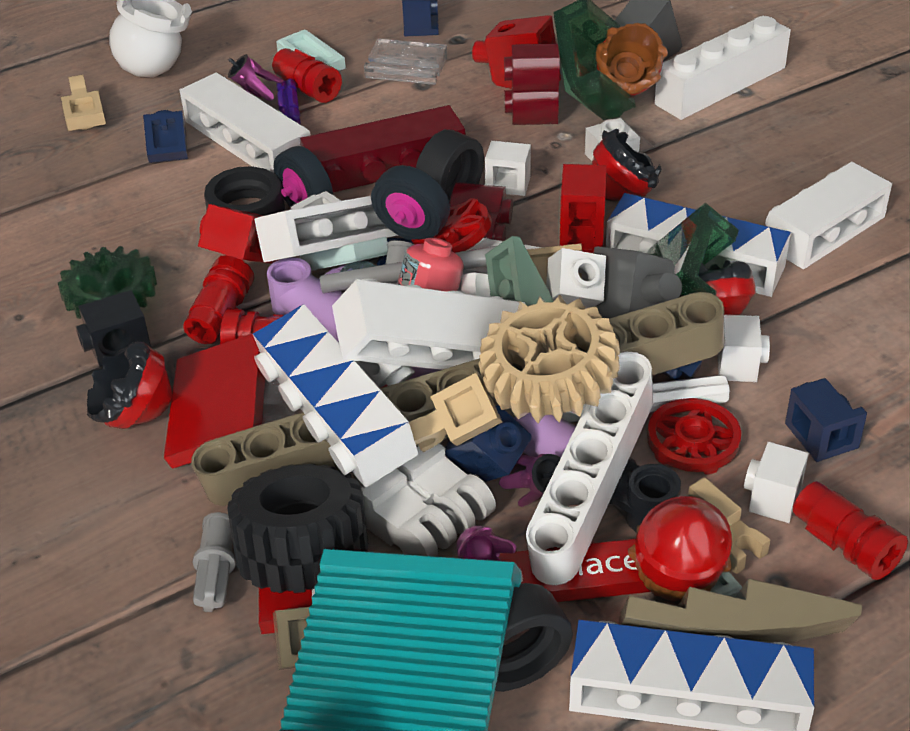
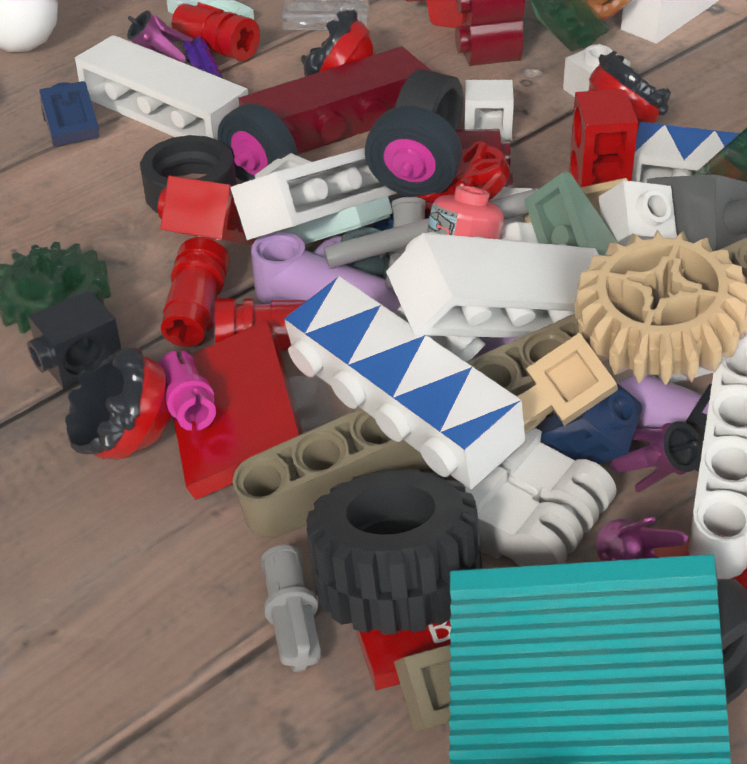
camera: 10 degrees left, 0 degrees up
(181, 382) = (187, 393): none -> dark pink pin
(403, 97) = (347, 42): none -> hair

